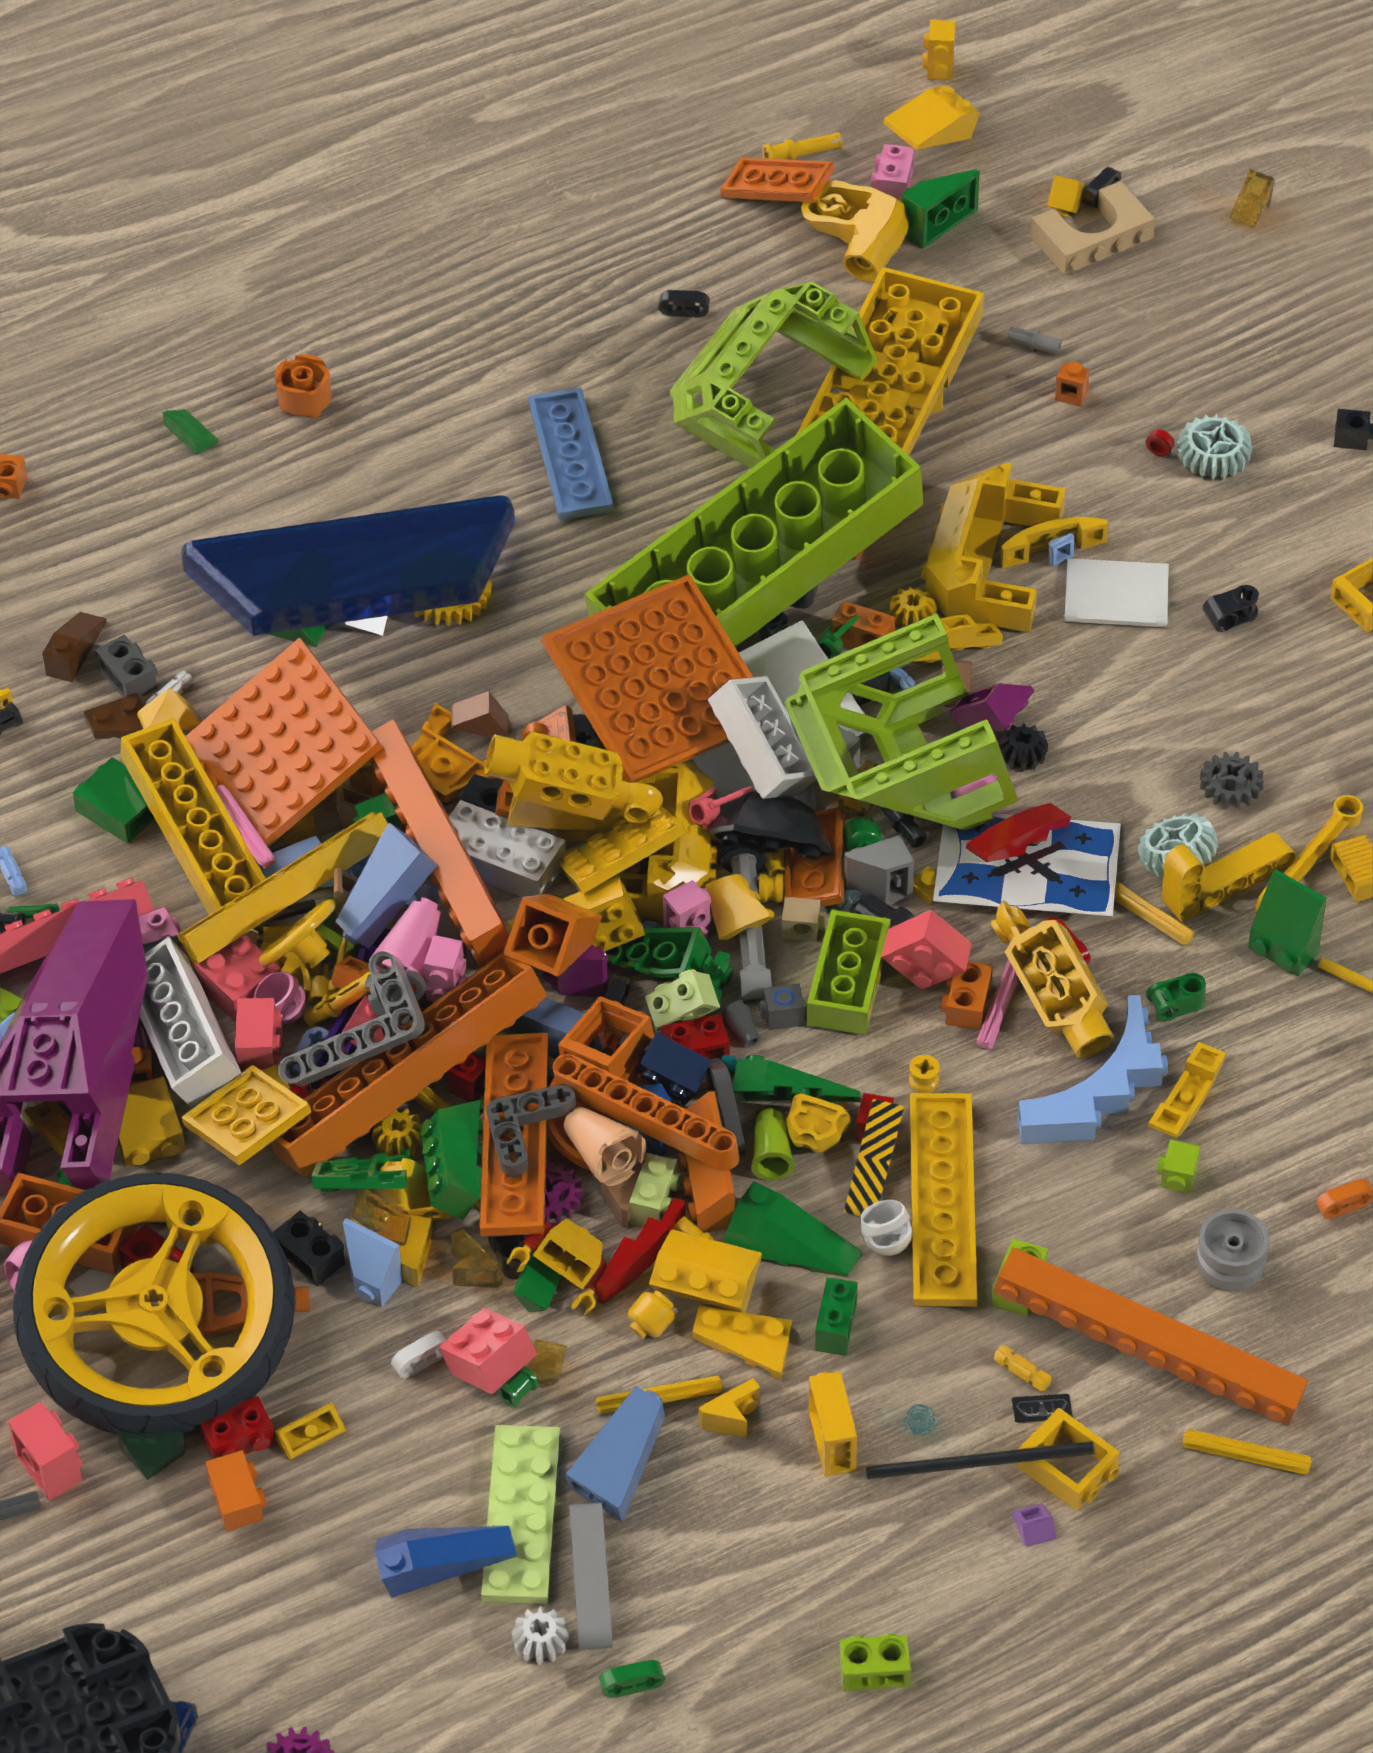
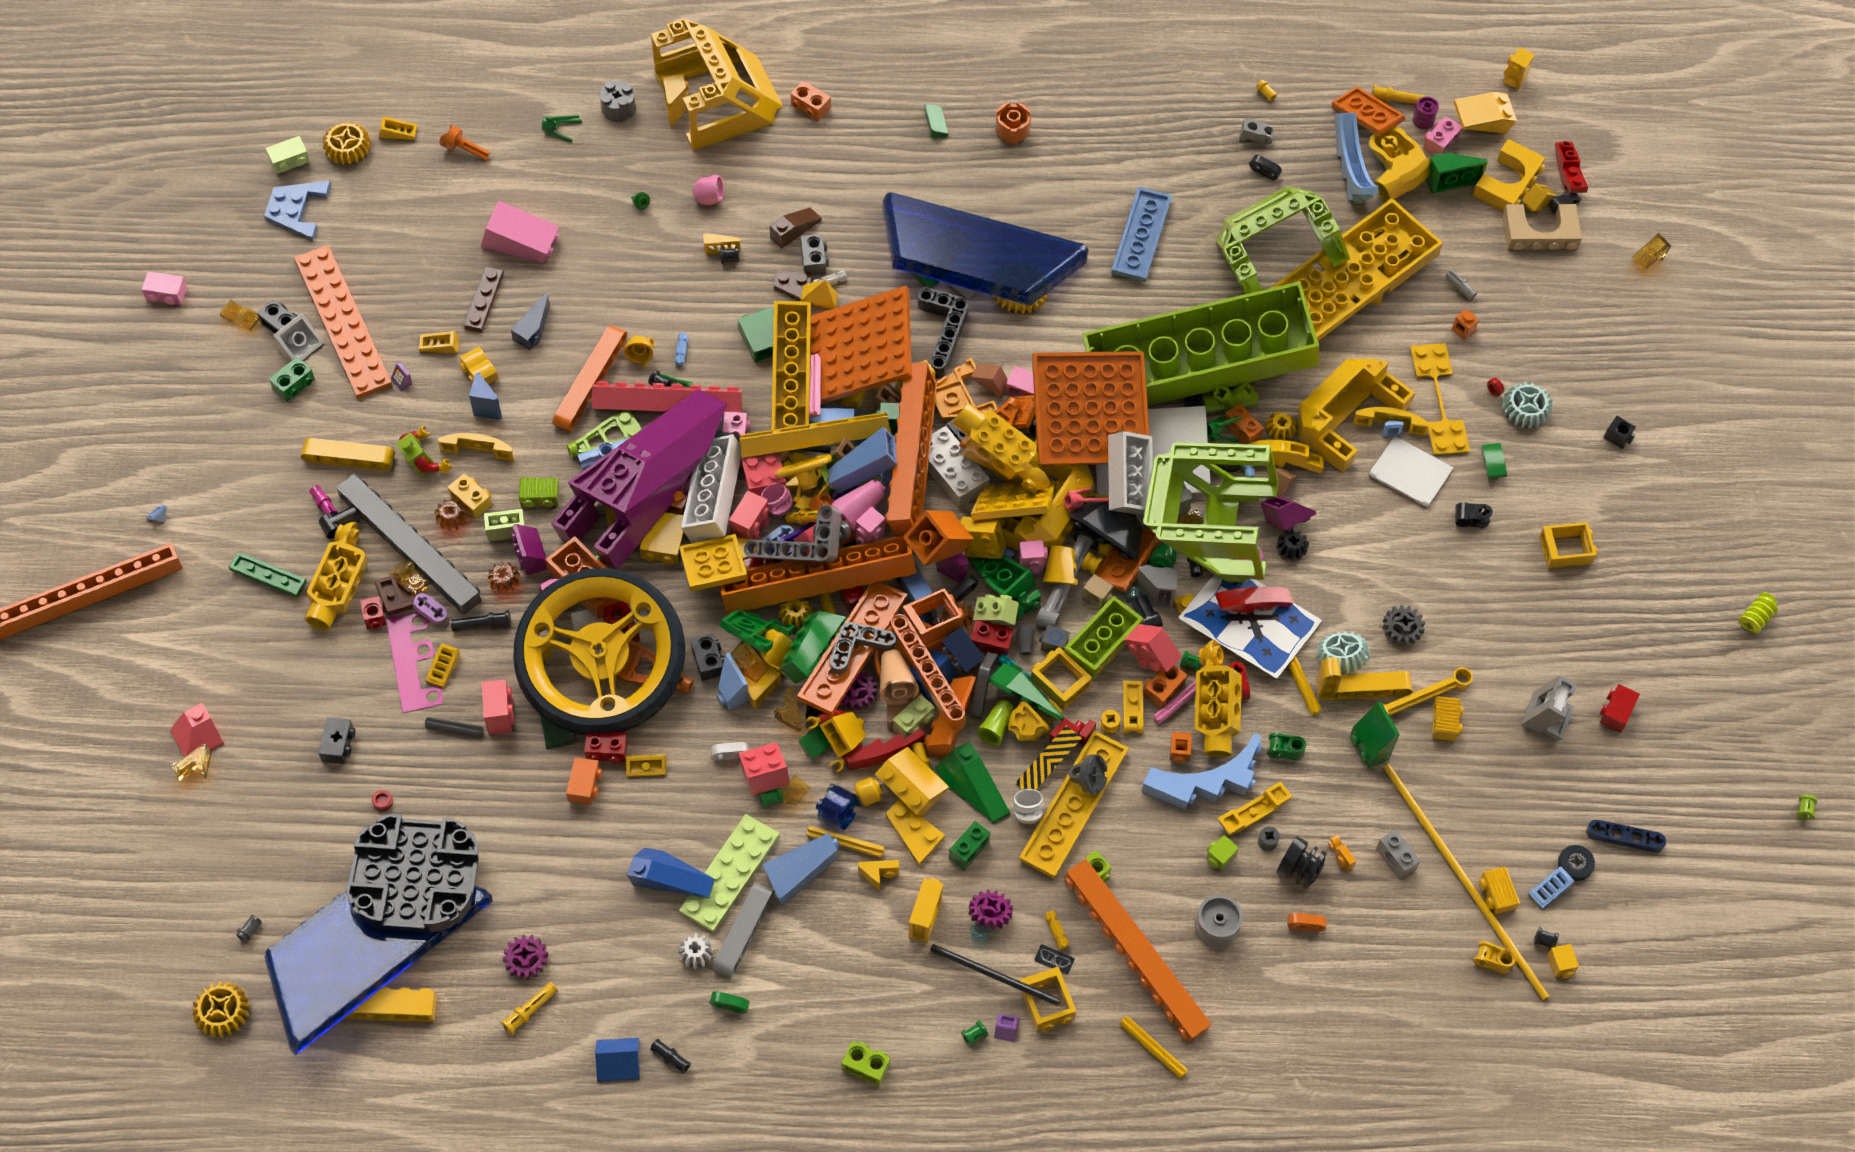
camera: 25 degrees right, 10 degrees up
(363, 653) = (956, 311): none -> black beam
(533, 703) = (1020, 383): none -> bright pink brick
(623, 210) = (1266, 90): none -> yellow pin
(623, 1352) = (837, 807): none -> clear blue brick
(643, 265) = (1256, 132): none -> light grey leg
(798, 249) = (1353, 168): none -> light blue arch
(824, 601) = (1225, 399): none -> lime piece
(827, 1027) = (1072, 693): none -> yellow window
(853, 151) = (1425, 112): none -> magenta wheel
(901, 1097) = (1085, 730): none -> red tile
(918, 1383) = (990, 909): none -> magenta gear
(942, 1041) = (1133, 706): none -> yellow plate
(944, 1144) = (1090, 775): none -> dark grey tile
(985, 949) = (1190, 661): none -> green bush
(998, 1551) = (974, 1033): none -> green bush
(1016, 160) = (1524, 162): none -> yellow arch
(1039, 1060) = (1180, 747): none -> orange brick
(1080, 143) = (1569, 167): none -> red slope
(1131, 529) = (1445, 435): none -> yellow hinge
(1217, 530) = (1494, 461): none -> green slope
(1233, 1126) = (1271, 842): none -> dark grey wheel
(1294, 1125) = (1302, 862): none -> black wheel
(1339, 1093) = (1343, 855): none -> light orange plate

